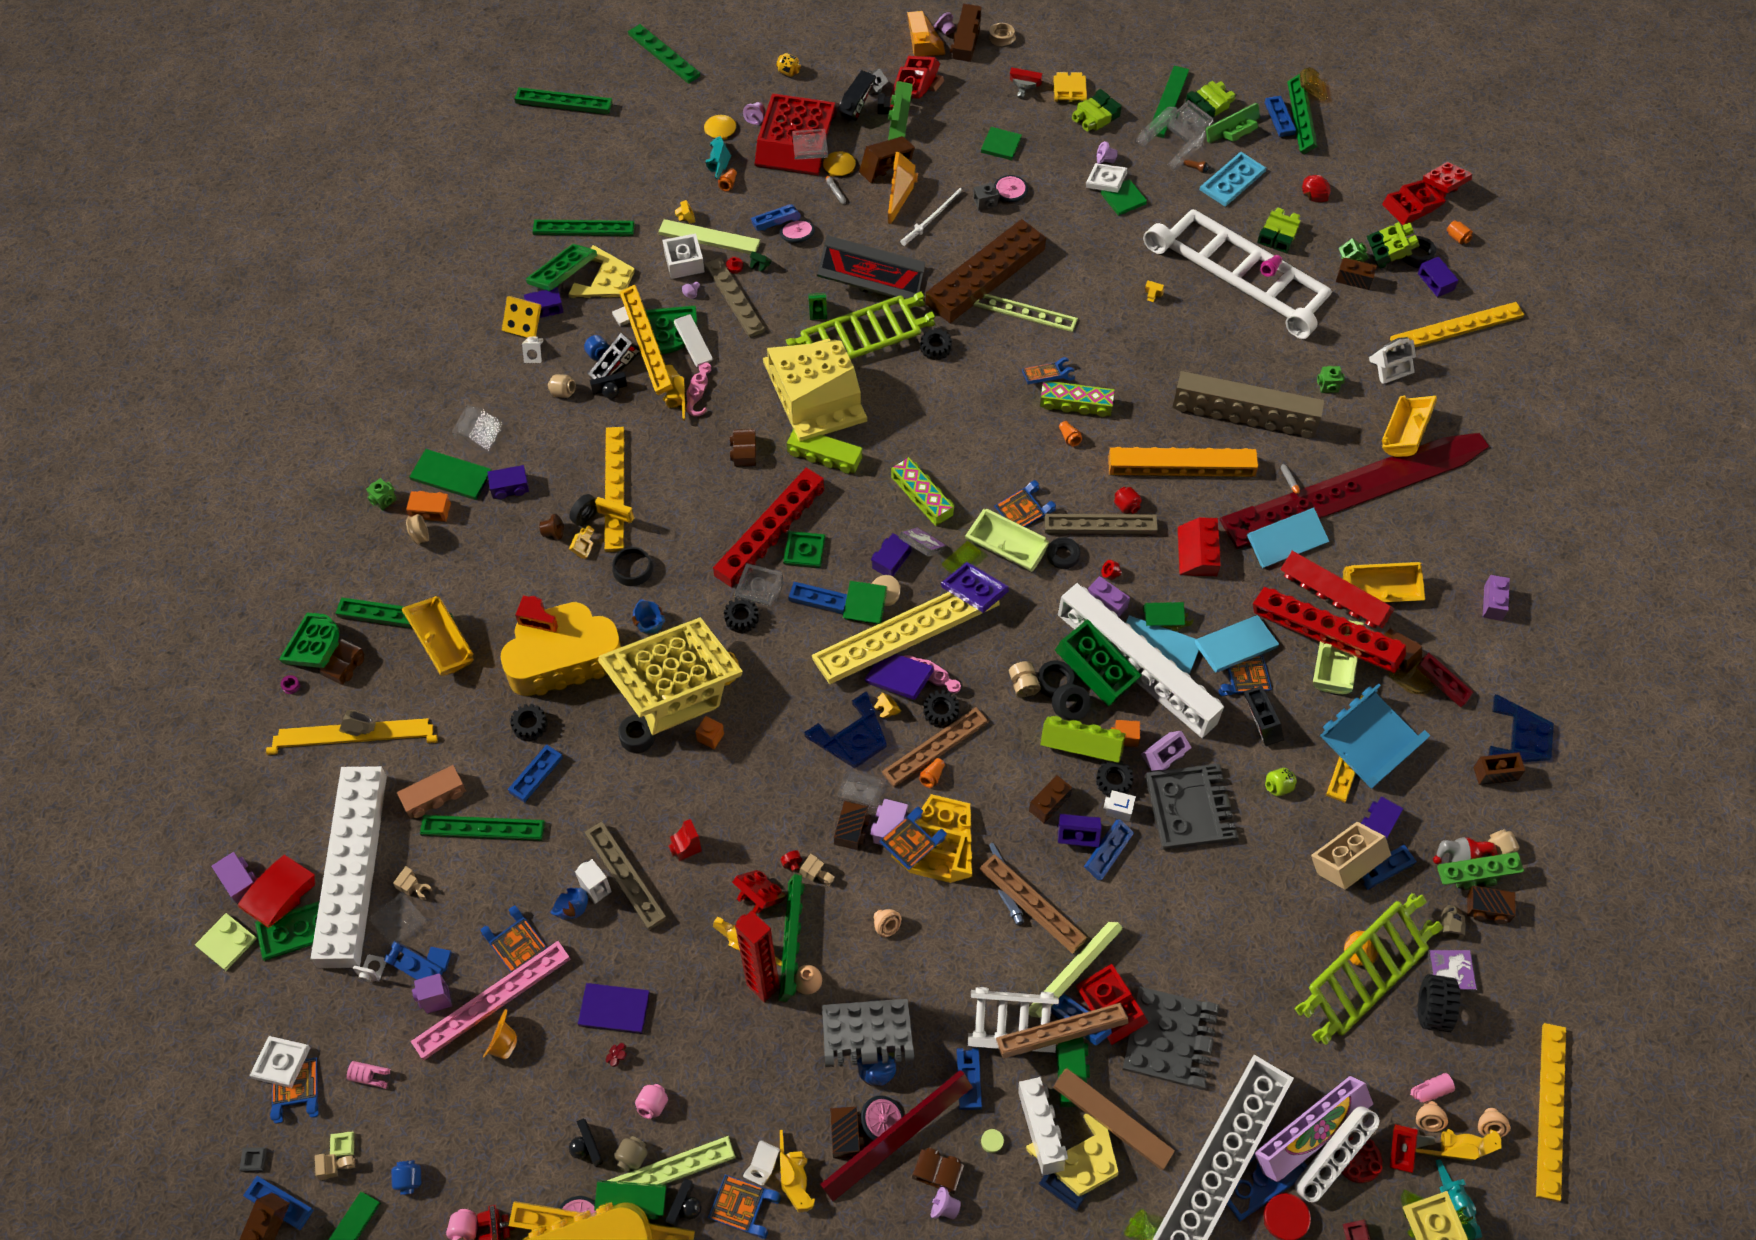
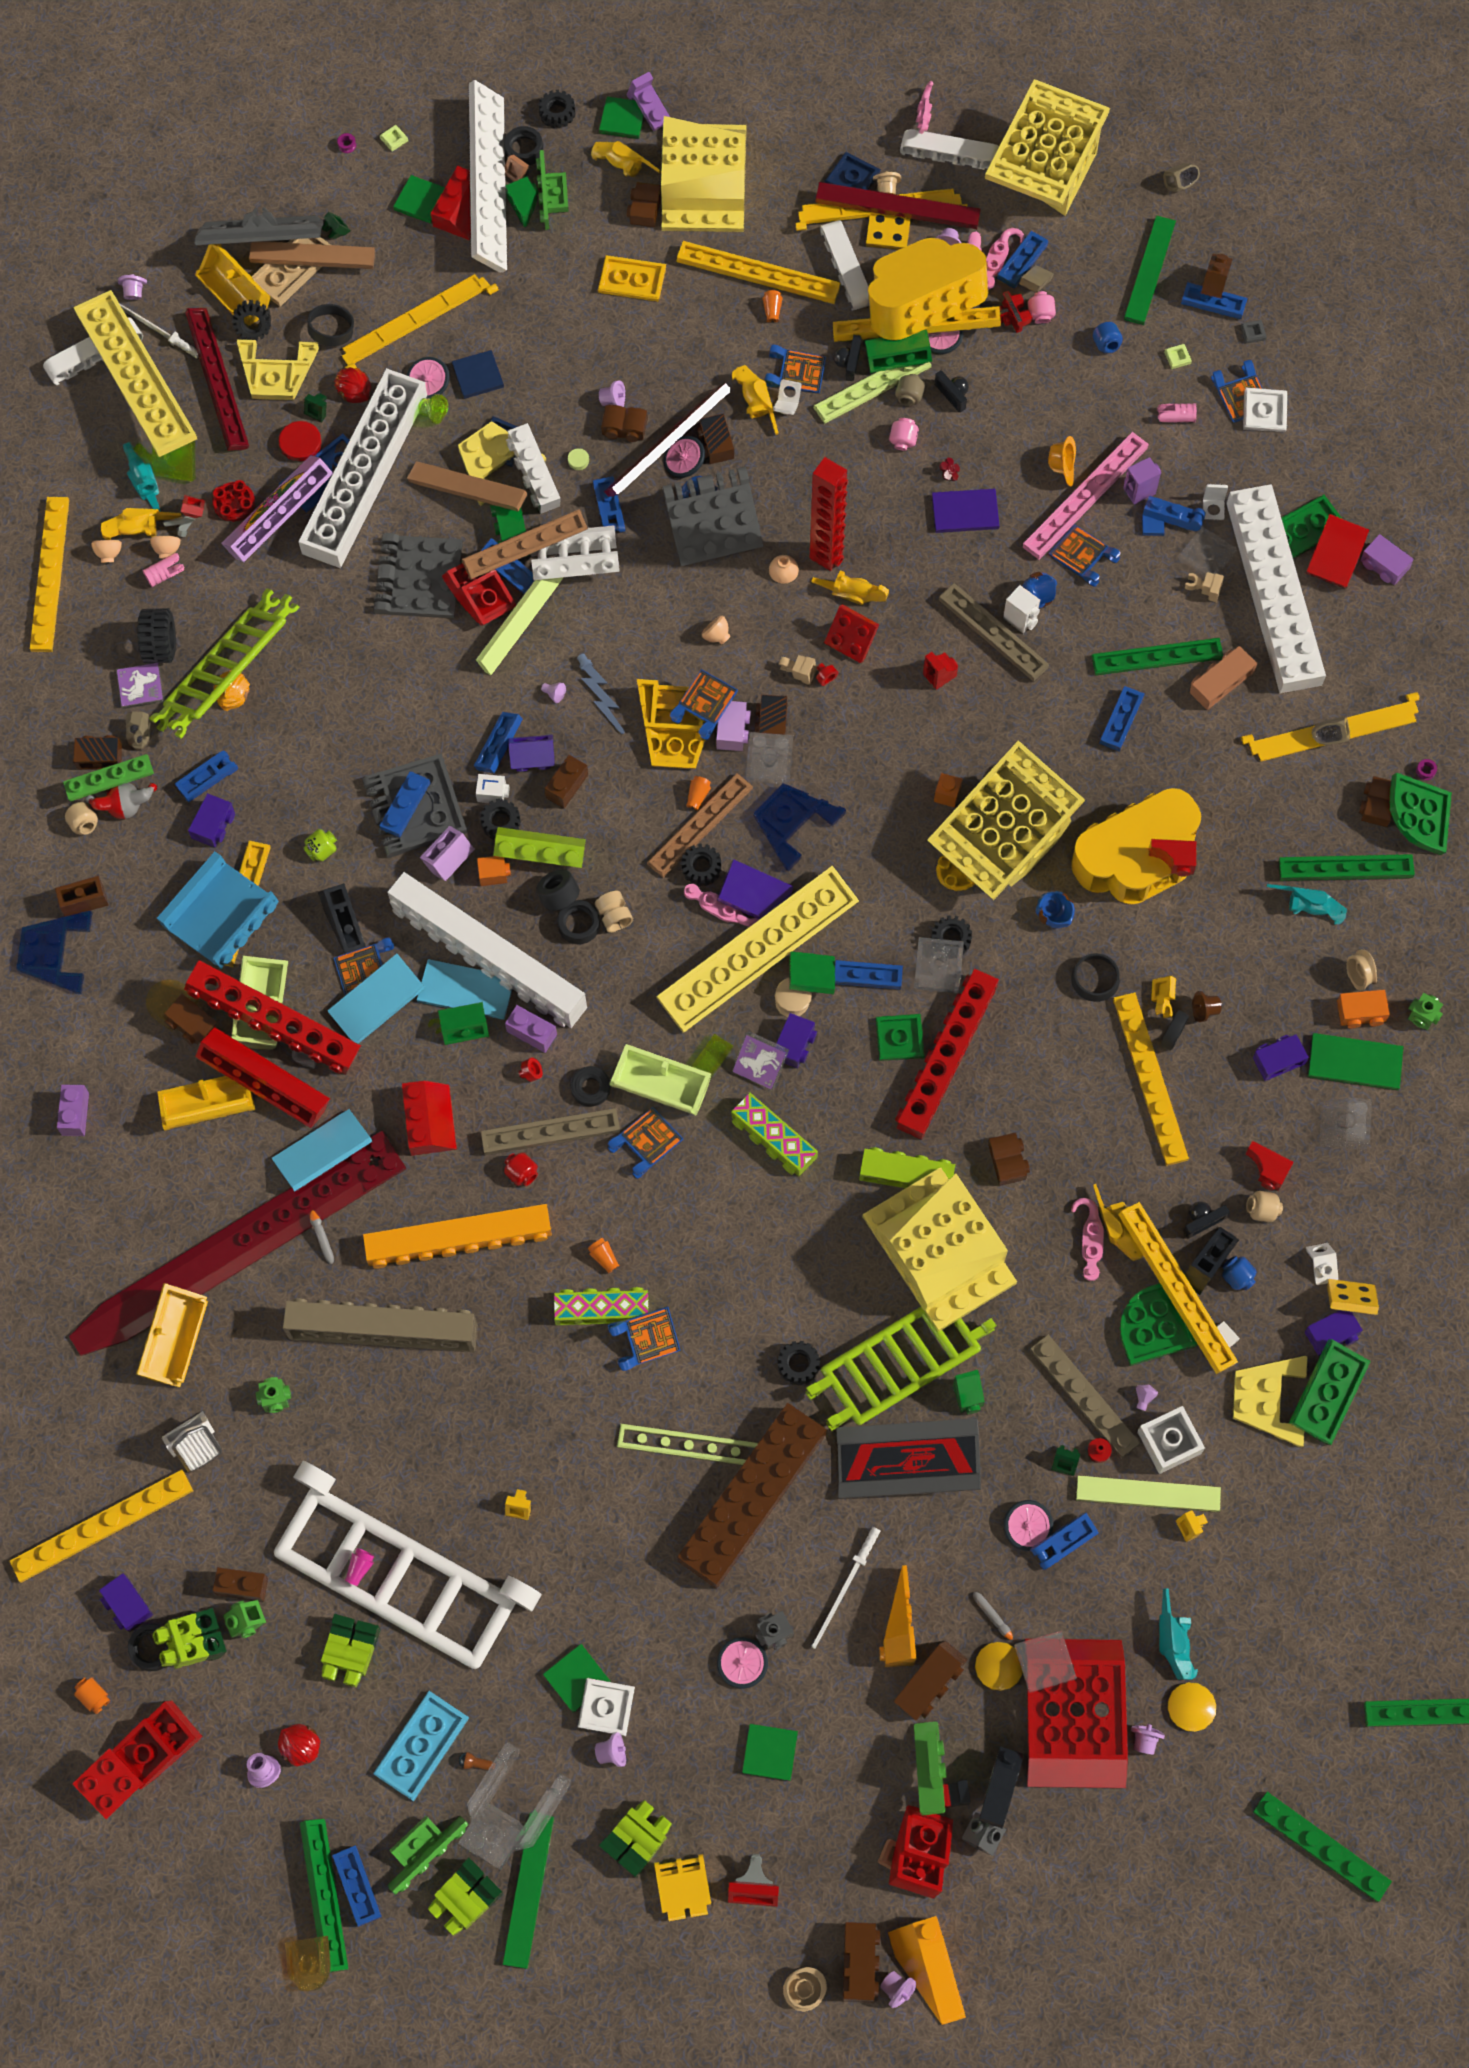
camera: 170 degrees right, 10 degrees up
(225, 941) = (1368, 504): yellowish green plate -> none
(327, 1165) = (1181, 333): tan piece -> none
(430, 589) = (1313, 902): none -> teal animal
(439, 635) = (1284, 837): yellow container -> none
(525, 712) = (1145, 782): black tyre -> none
(545, 408) = (1271, 1165): none -> red arch
(583, 227) = (1326, 1478): green tile -> none
(614, 510) = (1137, 1030): yellow tile -> none
(693, 340) = (1117, 1304): white tile -> none
(727, 180) = (1150, 1601): orange cone -> none
(788, 65) = (1122, 1847): yellow head -> none
(790, 944) = (807, 592): green plate -> none
(889, 704) = (760, 858): yellow tile -> none
(975, 587) = (688, 1011): dark purple tile -> none
(1033, 903) = (571, 676): medium nougat tile -> none
(1049, 891) = (555, 691): none -> lavender rock
(1097, 662) = (535, 933): green brick -> none
(1201, 801) = (404, 804): none -> blue plate
(1341, 178) = (262, 1770): none -> lavender piece
(1348, 1150) = (255, 488): white beam -> none
(1351, 855) = (244, 768): tan brick -> none
(1444, 679) = (138, 993): dark red plate -> none

